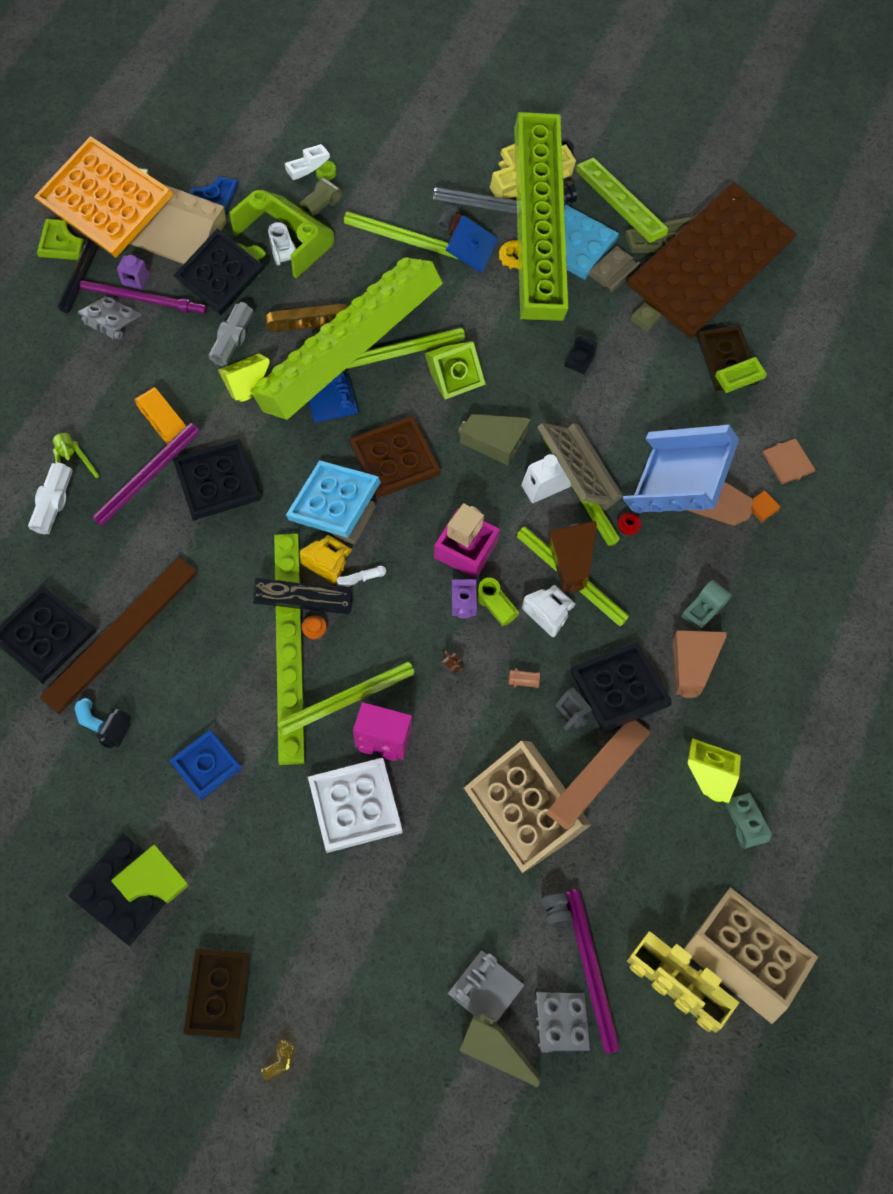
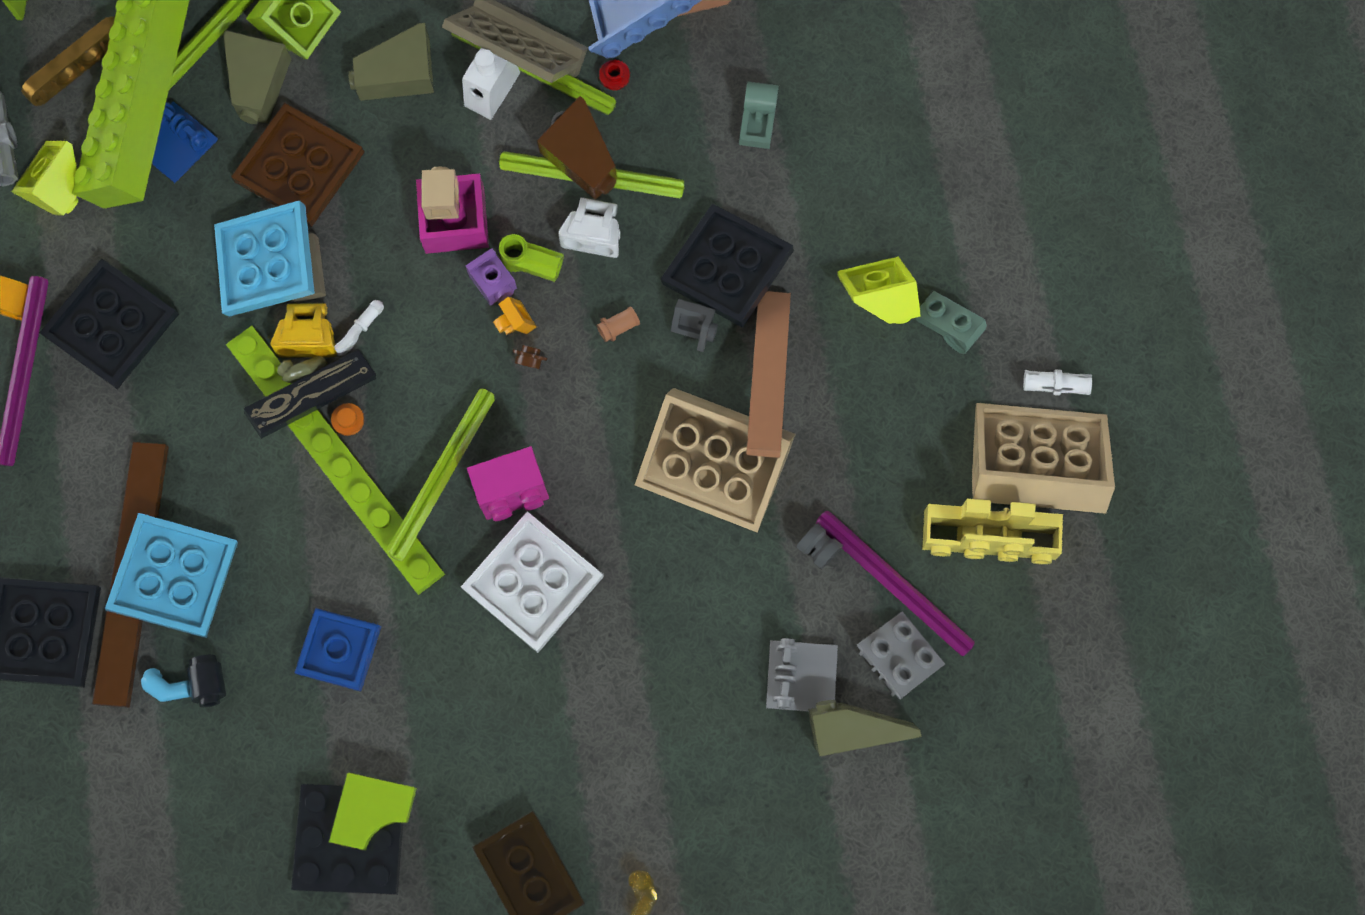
camera: 30 degrees left, 10 degrees up
(141, 651) = (171, 575): none -> medium azure plate
(301, 576) = (293, 373): none -> olive arm
(406, 389) = (255, 75): none -> olive slope
(460, 631) = (514, 317): none -> light orange tile
(694, 660) = (785, 184): nougat slope -> none
(796, 911) = (1057, 382): none -> white pin

